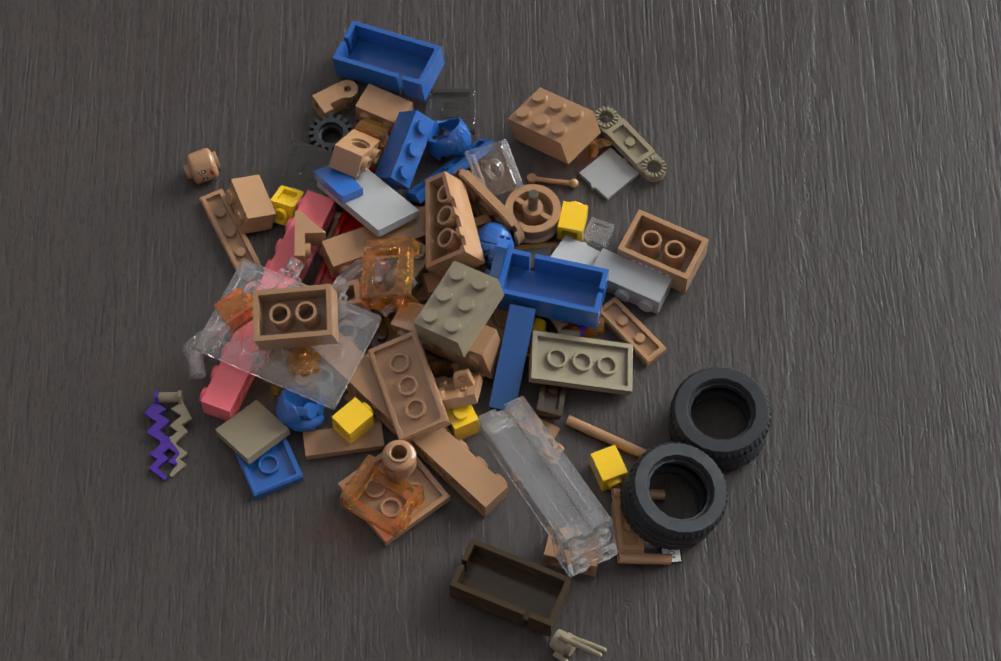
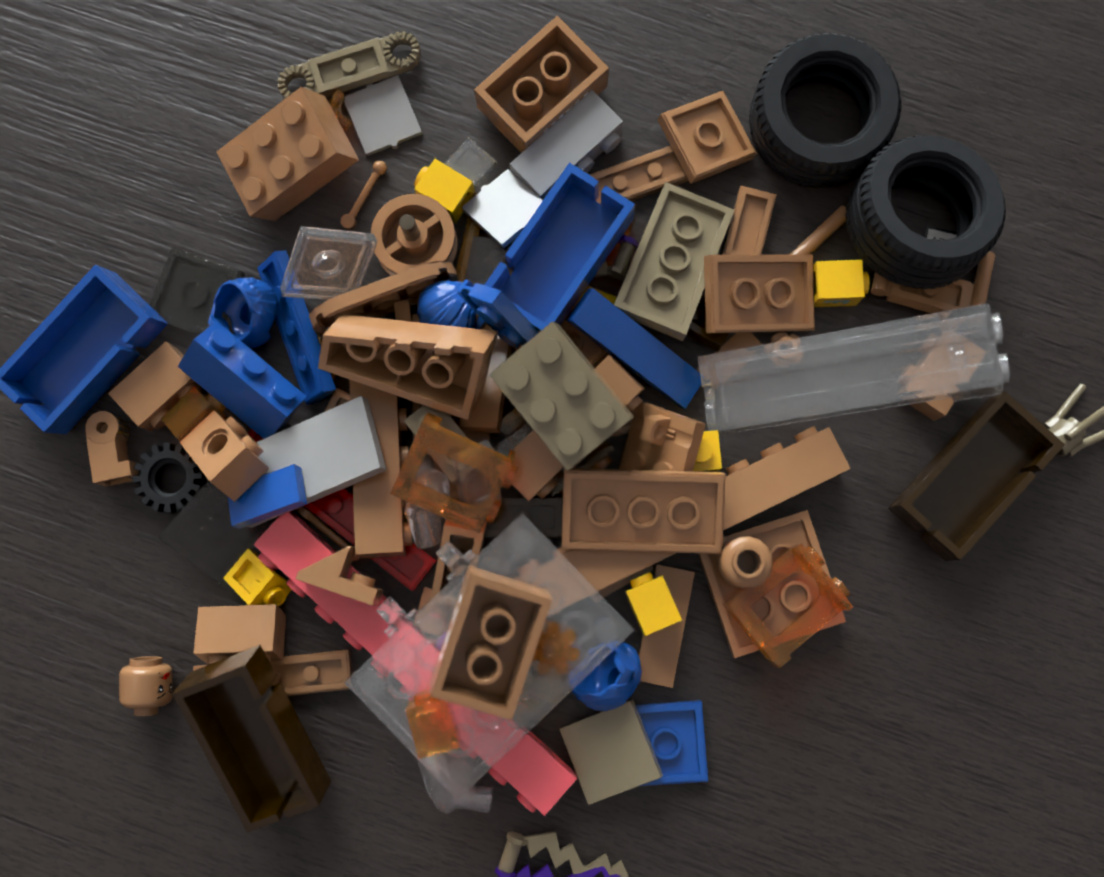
camera: 65 degrees left, 20 degrees up
(192, 226) = (253, 738): none -> dark brown piece
(579, 419) = (759, 293): none -> medium nougat tile
(627, 407) = (749, 222): none -> medium nougat tile
(674, 359) = (706, 137): none -> medium nougat tile

